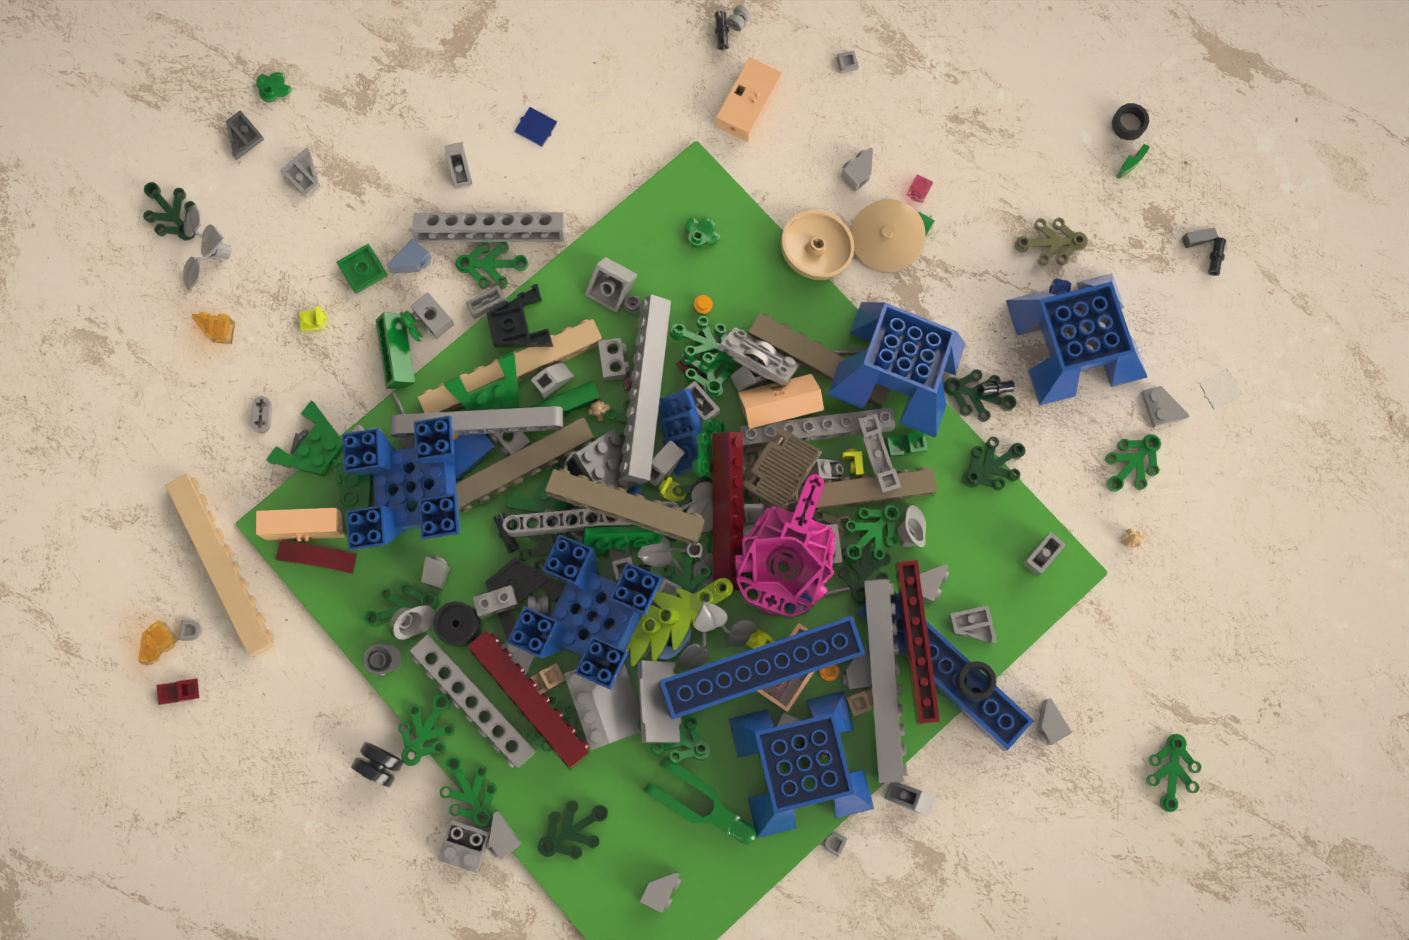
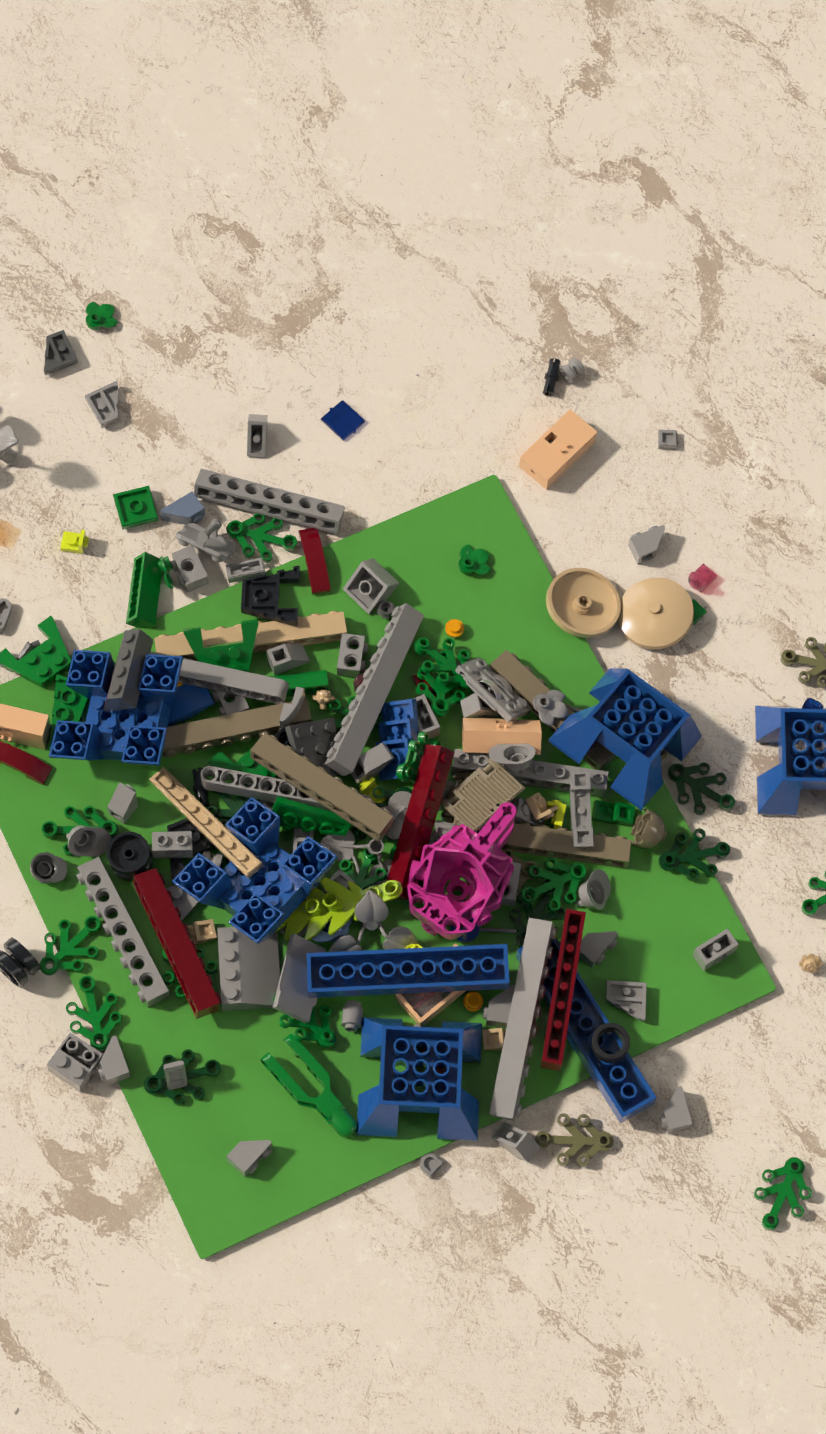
camera: 15 degrees right, 10 degrees down
(401, 442) = (127, 672): none -> dark grey slope
(440, 283) = (207, 540): none -> light grey shield
(522, 570) = (206, 822): none -> tan tile
(550, 274) = (314, 560): none -> dark red slope
(567, 835) = (175, 1075): none -> light grey slope
(571, 437) = (289, 711): none -> light grey slope
(718, 720) = (352, 1016): none -> light grey brick
(799, 419) = (513, 756): none -> light grey piece
(821, 358) = (553, 706): none -> light grey plate
(837, 462) = (538, 807): none -> tan bracket
(945, 453) = (648, 830): none -> dark tan cylinder
(967, 778) = (577, 1140): none -> olive plant
(995, 388) = (718, 784): black pin -> none

